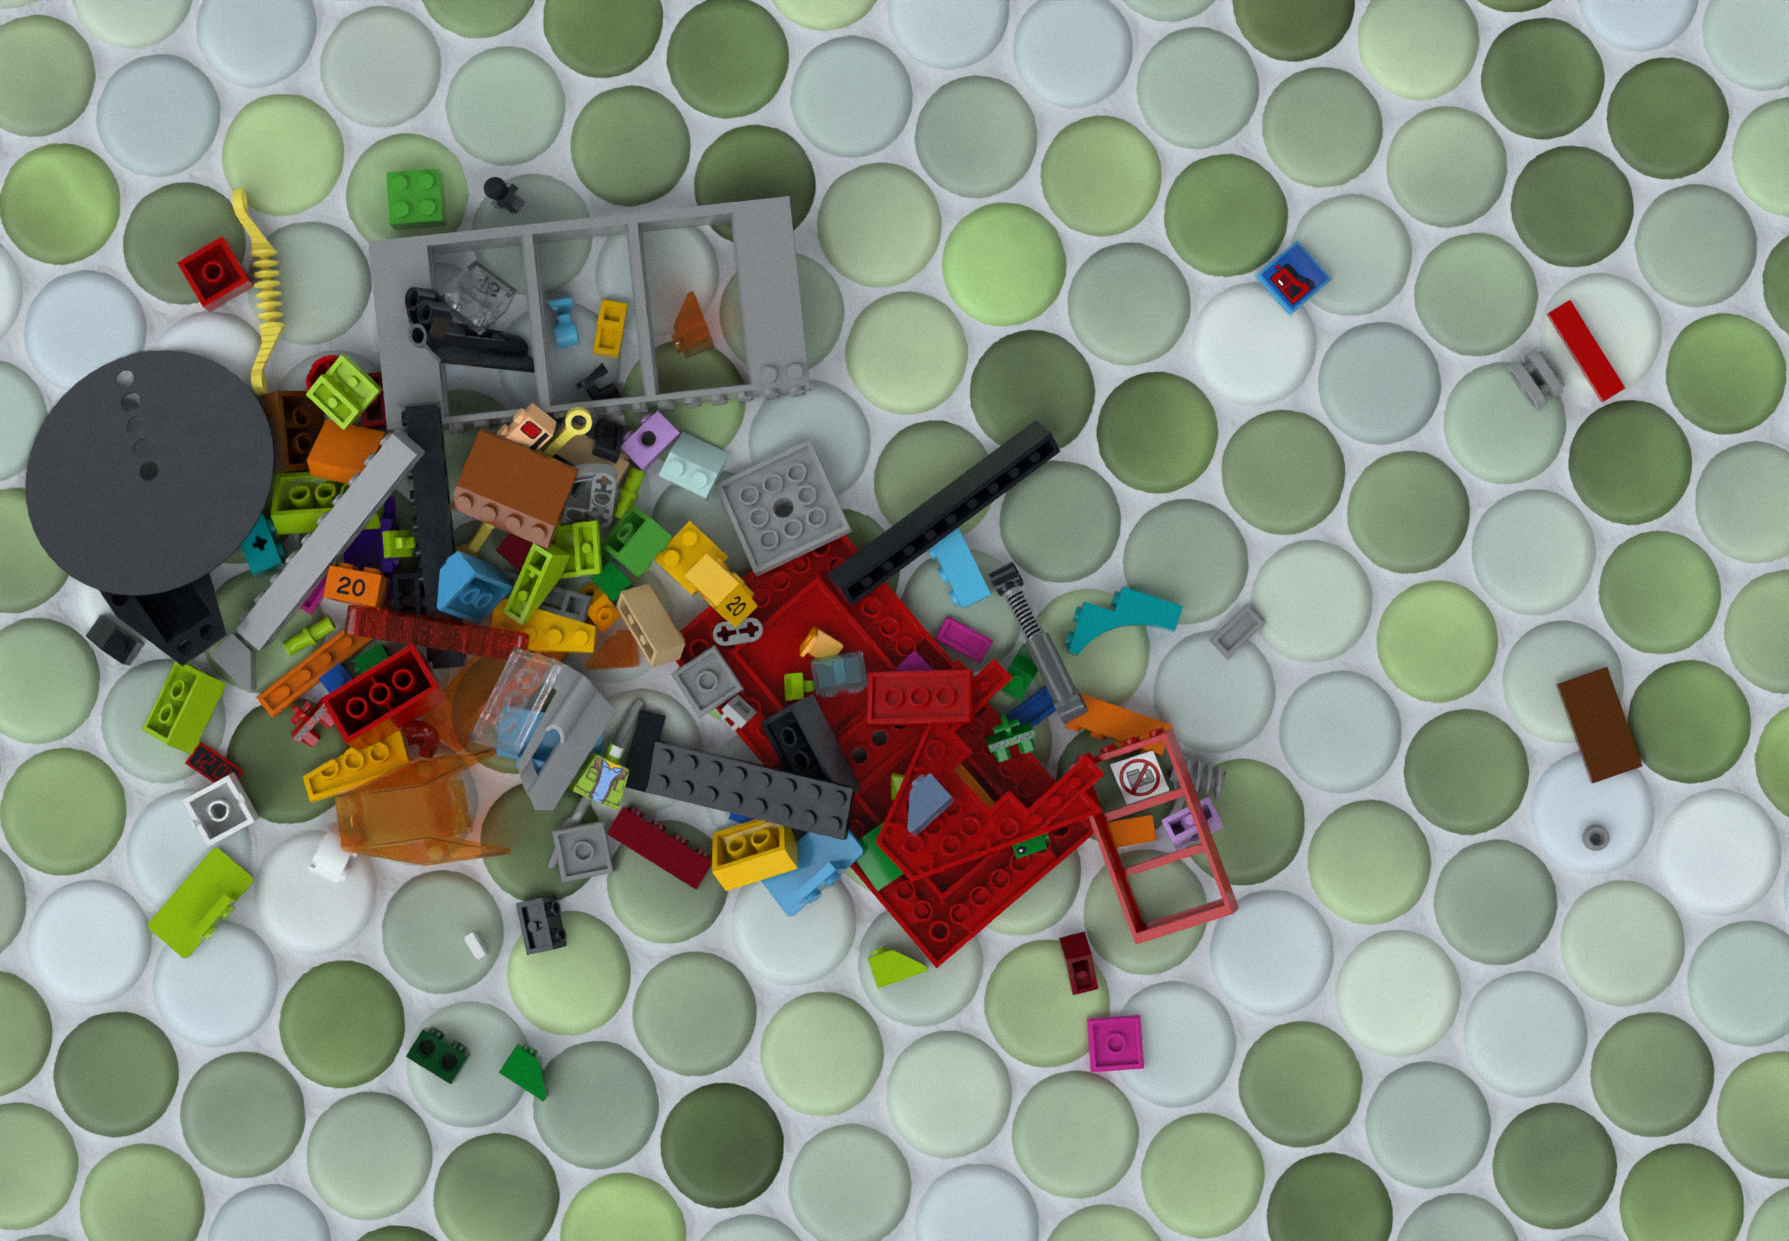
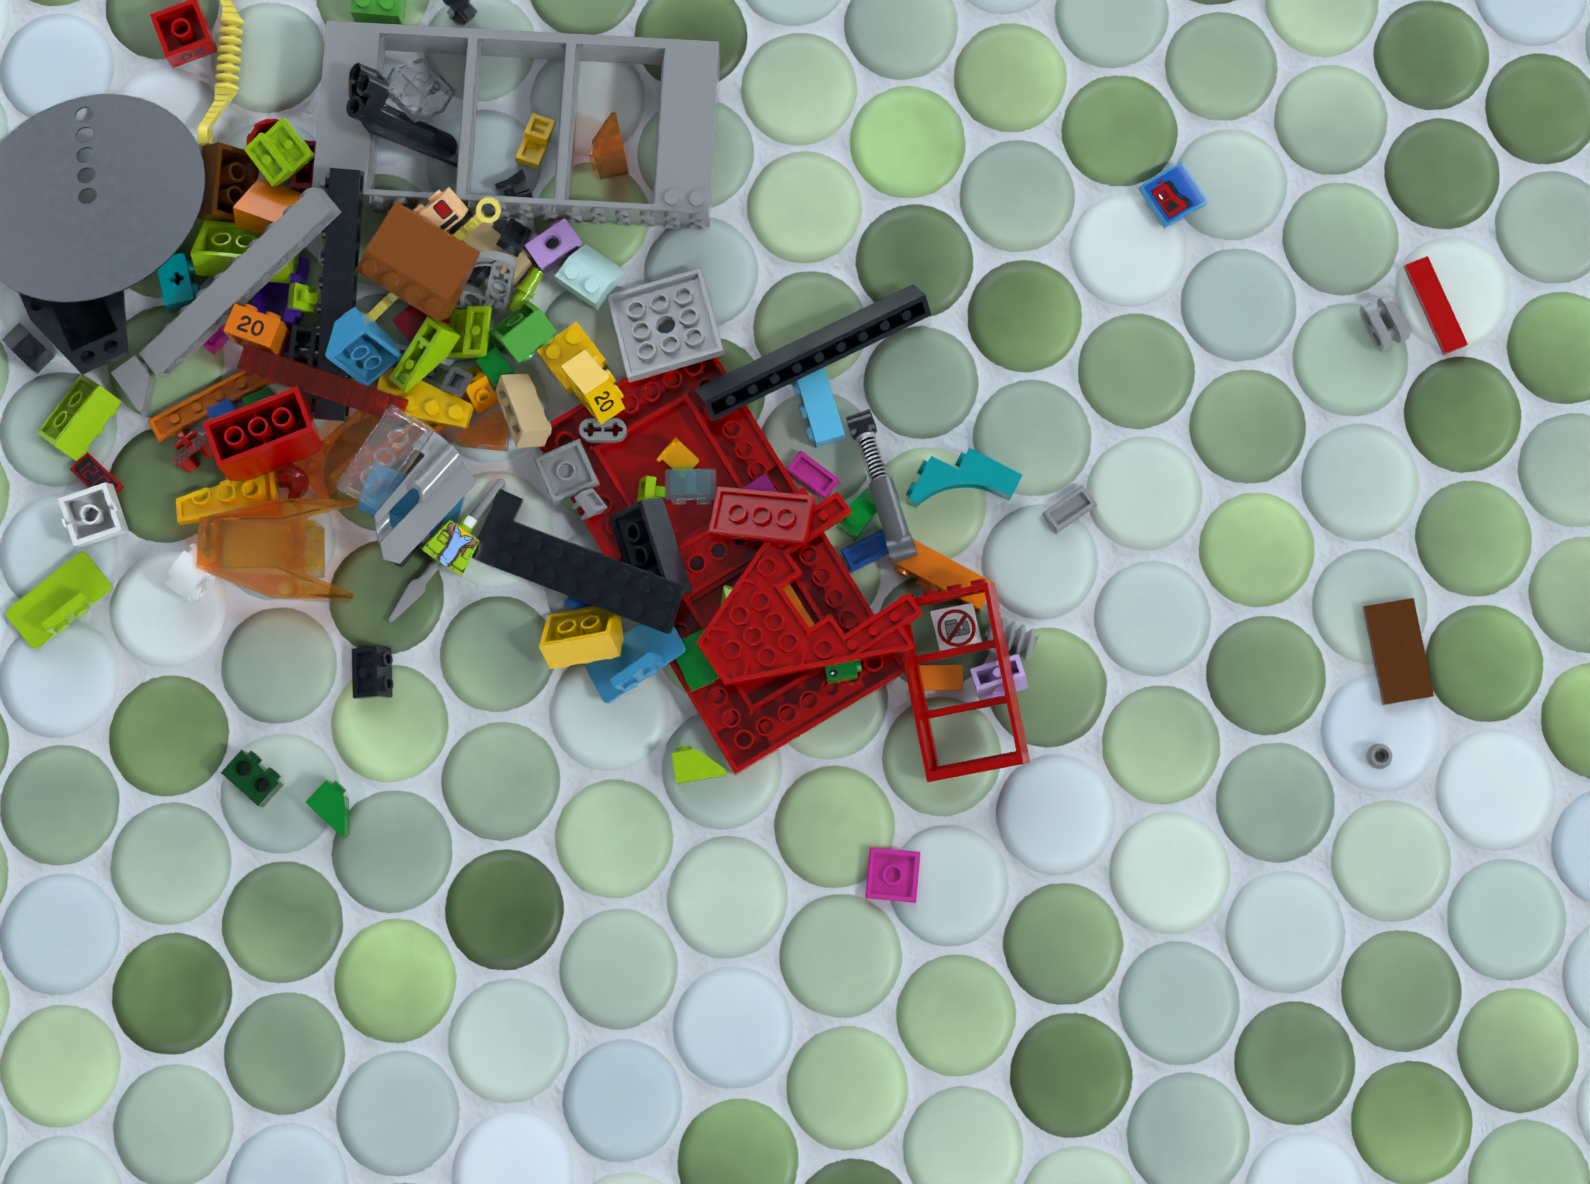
camera: 15 degrees right, 5 degrees down
(309, 635) = (207, 371): lime pin -> none
(476, 945) = (307, 681): white tile -> none
(566, 330) = (494, 135): medium azure leg -> none
(583, 851) = (423, 611): light grey tile -> none
(660, 847) = (495, 619): dark red brick -> none
(926, 803) = (749, 610): sand blue slope -> none
(1009, 734) = (829, 572): green hips -> none
(1078, 963) = (870, 792): dark red slope -> none

